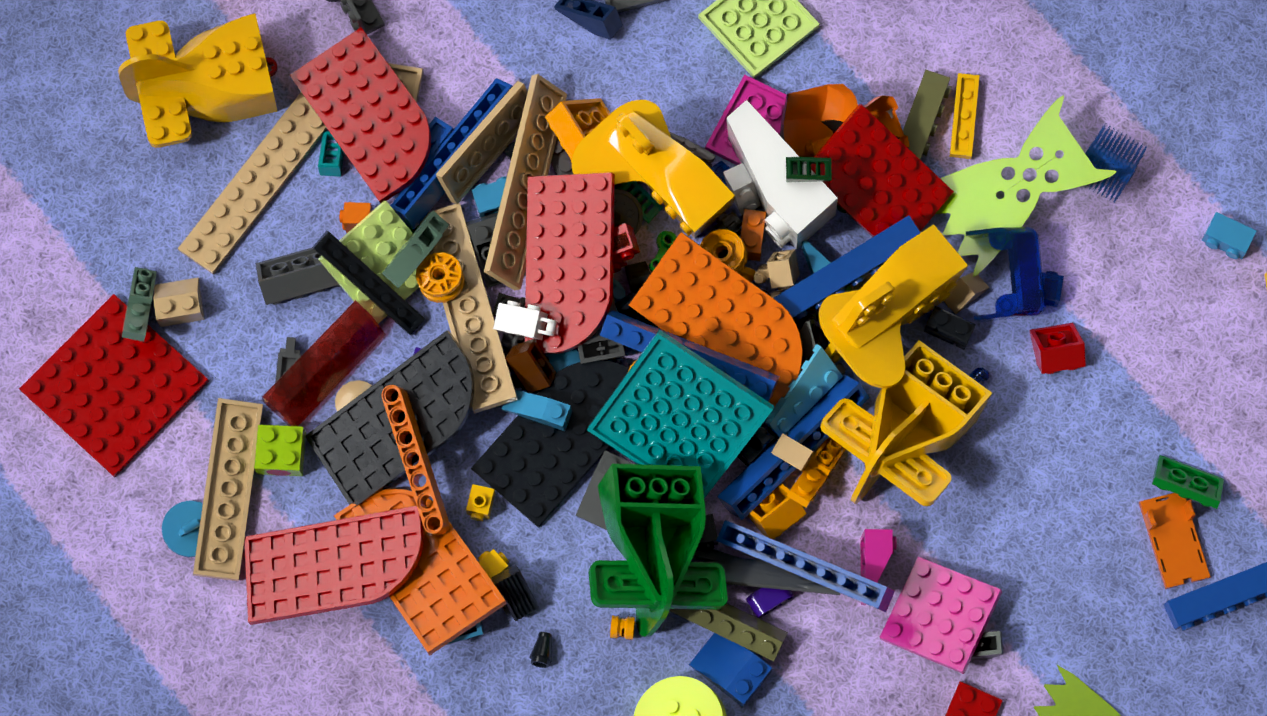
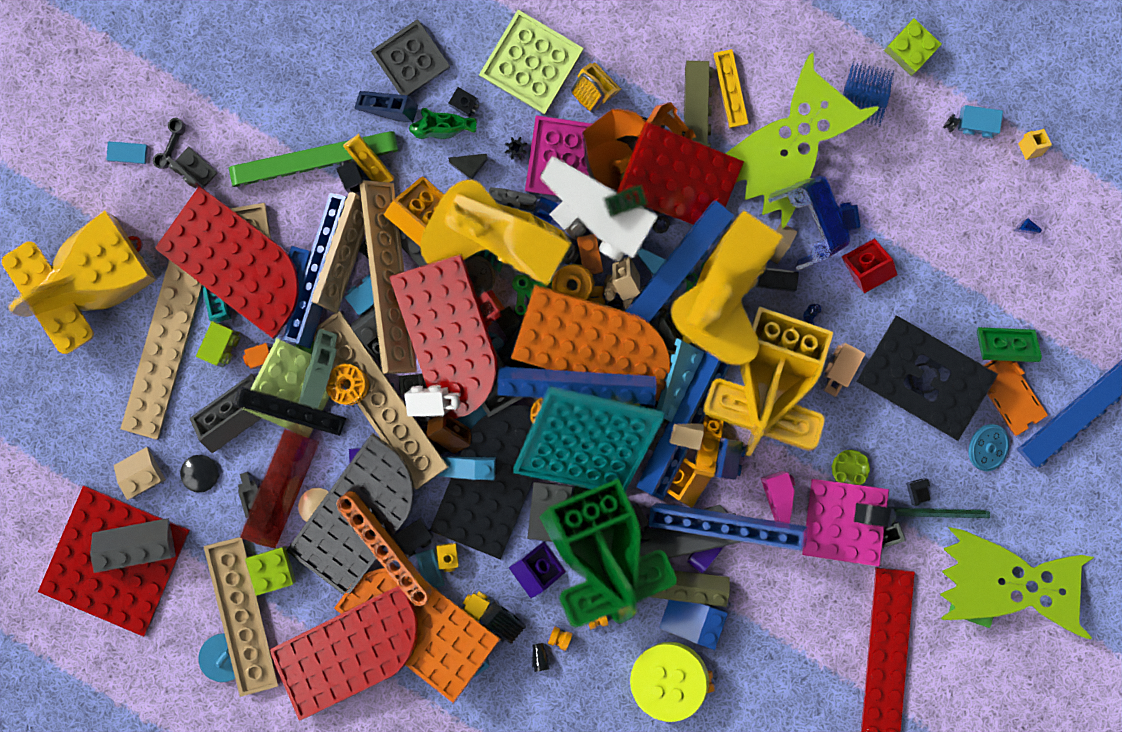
camera: 25 degrees left, 15 degrees up
(139, 304) = (107, 490): sand green slope -> none
(141, 371) = (132, 545): none -> dark grey slope
(243, 324) = (199, 473): none -> black dish
(318, 192) = (218, 344): none -> lime brick
(451, 468) = (412, 537): none -> black piece
(455, 506) = (429, 568): none -> dark azure tile
(491, 41) = (306, 160): none -> bright green beam
(524, 66) = (350, 176): none -> black piece
(548, 58) = (367, 160): none -> yellow tile
(572, 550) = (537, 570): none -> dark purple slope
(572, 635) = (560, 638): none -> light orange wheel
(639, 52) = (441, 125): none -> green animal
(663, 99) = (469, 164): none -> pearl dark grey slope
(672, 37) = (464, 102): none -> black brick
(711, 107) = (513, 153): none -> black gear
(816, 65) = (594, 87): none -> yellow piece
(831, 497) = (729, 458): none -> blue slope
(843, 223) = (667, 224): none -> black bush
(967, 558) = (850, 467): none -> lime dish
(976, 608) = (874, 515): none -> black brick
(992, 446) = (842, 368): none -> light nougat brick
(1036, 611) = (918, 491): none -> black panel
(1048, 641) = (941, 512): none -> clear green tile
(1107, 514) = (957, 396): none -> black plate
(1131, 588) = (989, 447): none -> dark azure shield
(1177, 135) = (912, 47): none -> lime brick
(1196, 228) = (951, 123): none -> black bush
(1248, 365) = (1028, 226): none -> clear blue slope

